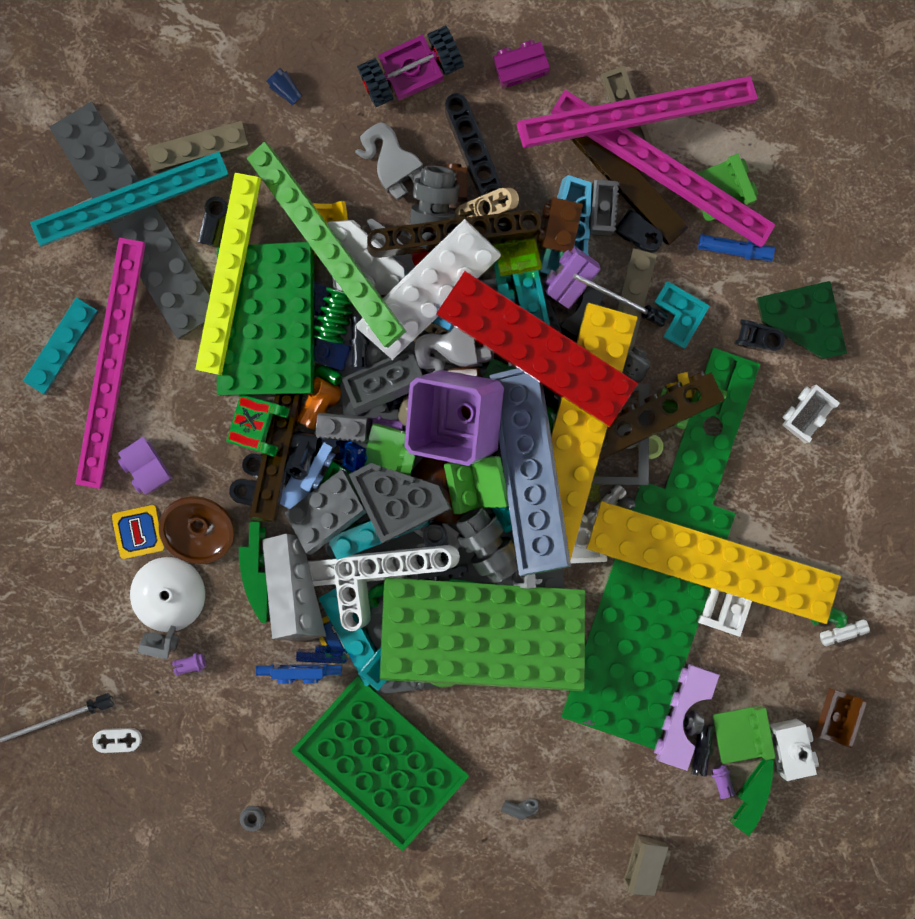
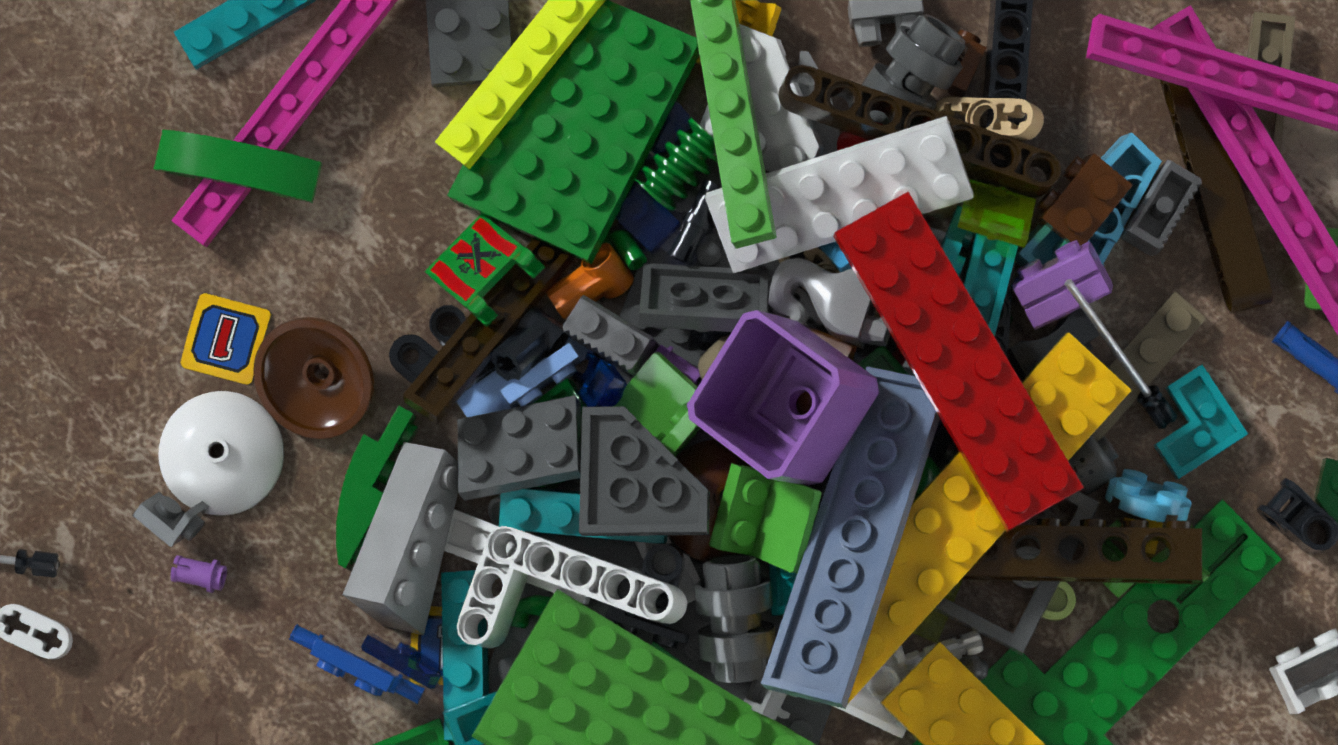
camera: 30 degrees right, 5 degrees down
(95, 435) = (238, 164): none -> green slope
(145, 466) = (286, 246): medium lavender brick -> none
(636, 229) = (1194, 266): black piece -> none
(674, 368) = (1148, 498): none -> medium azure plate

